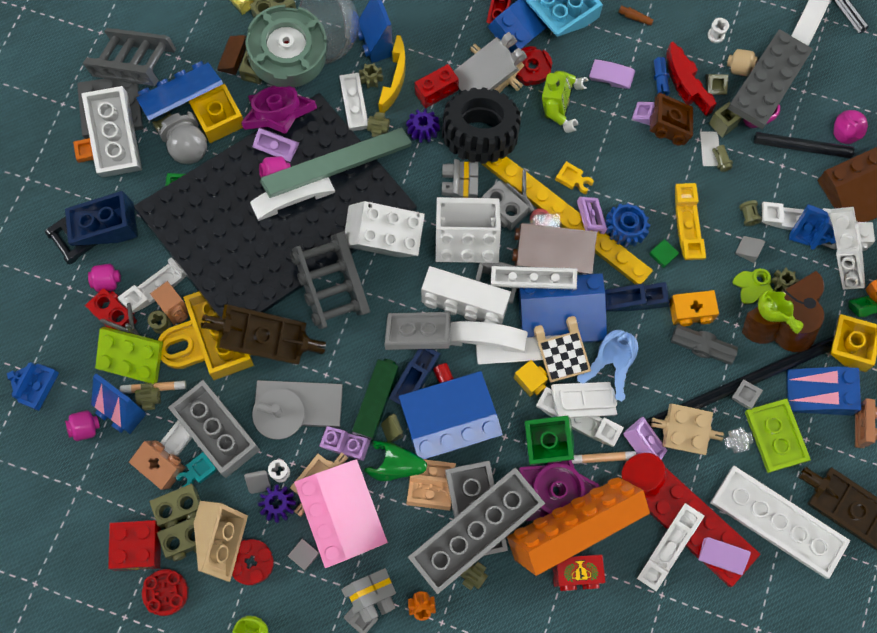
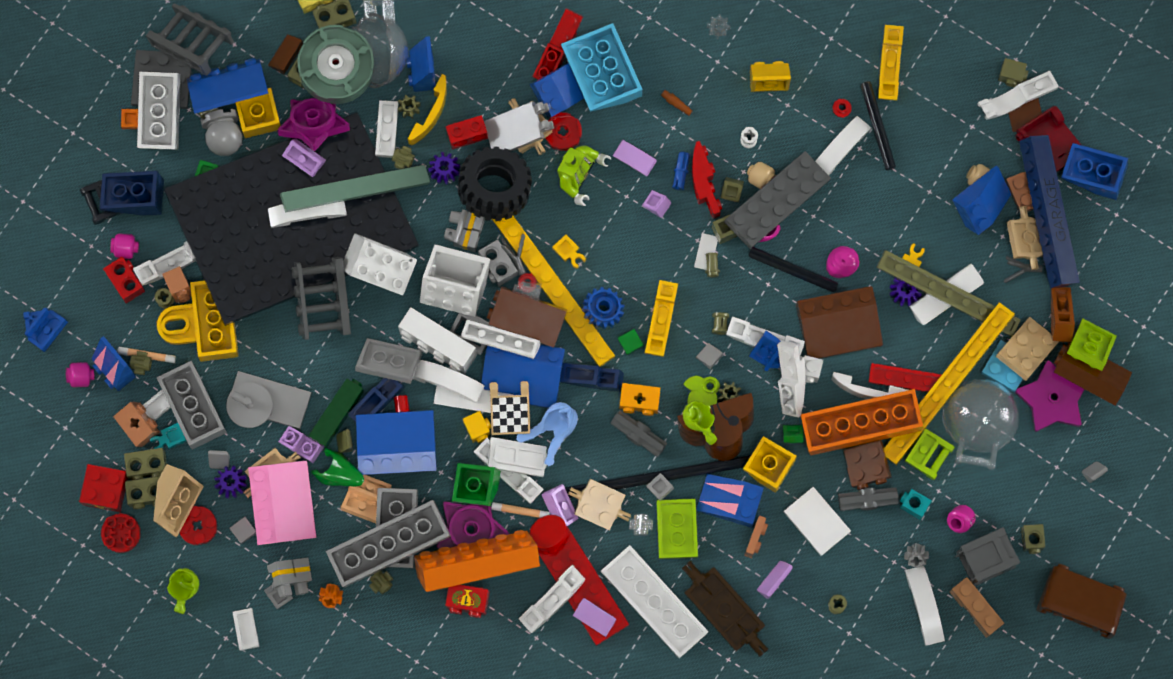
camera: 15 degrees right, 5 degrees up
(128, 355) = (132, 322): lime plate -> none
(129, 328) = (138, 299): dark grey plant -> none
(262, 335) = (251, 333): dark brown plate -> none
(271, 165) = (295, 181): dark pink head -> none
(274, 467) = (235, 450): white bush -> none
(588, 214) = (579, 305): lavender tile -> none
(672, 120) = (675, 217): reddish brown plate -> none

